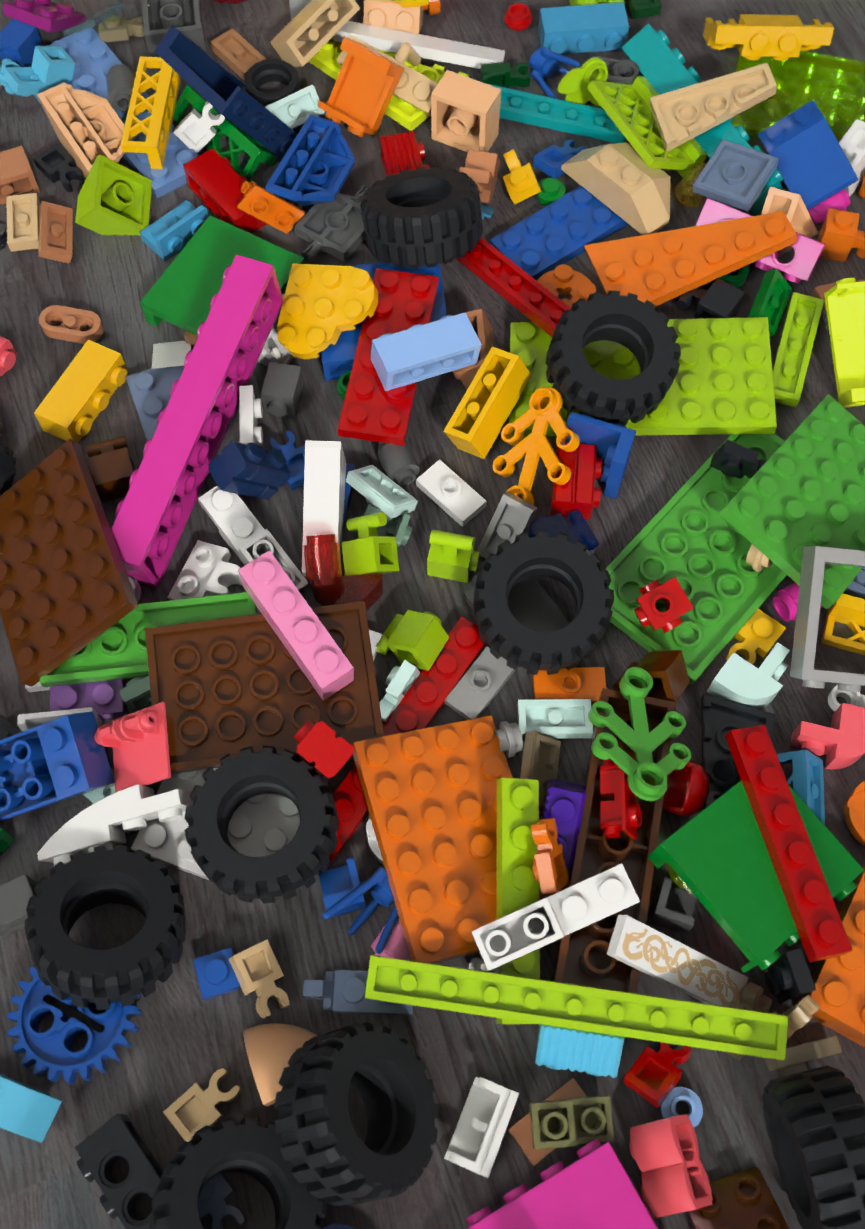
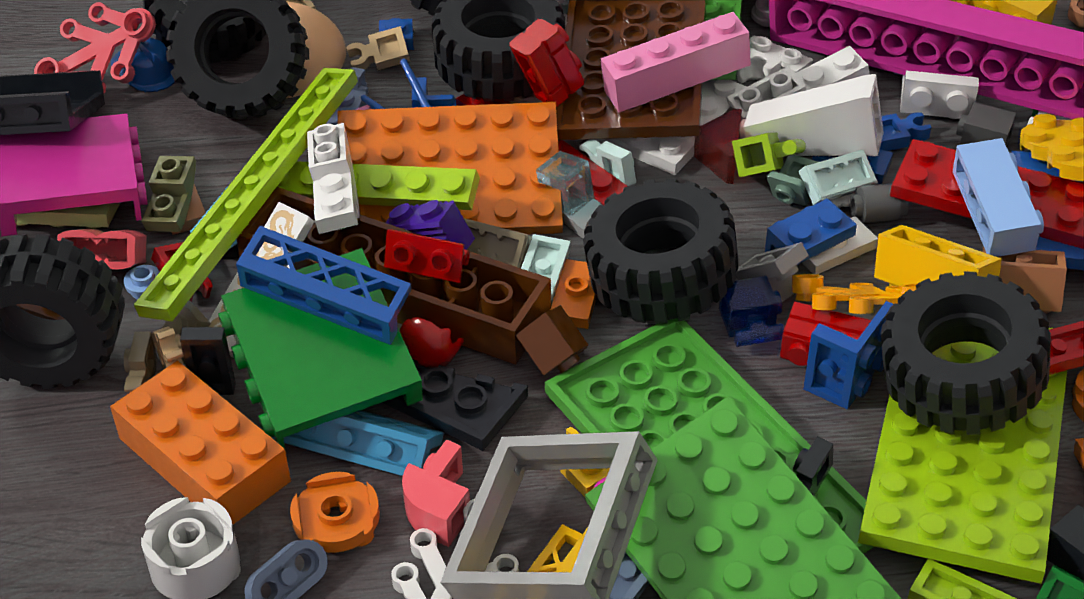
camera: 105 degrees right, 20 degrees down
(249, 470) = (878, 59): dark blue brick -> none
(322, 559) = (752, 101): clear red brick -> none
(414, 638) = (655, 165): lime brick -> none
(452, 556) = (753, 216): lime brick -> none
(453, 712) = (570, 176): none -> clear light blue panel
(456, 504) = (815, 226): none -> blue bracket
(481, 1126) = (211, 166): white hinge -> none
(509, 738) = (533, 224): light grey plate -> none
(549, 861) = (385, 194): orange plate -> none
(644, 777) = (475, 267): bright green plant -> none
(674, 599) = (632, 349): red brick -> none
(745, 857) = (314, 295): none -> blue fence
(747, 684) = (529, 415): light aqua brick -> none
(788, 844) = (329, 357): red plate -> none

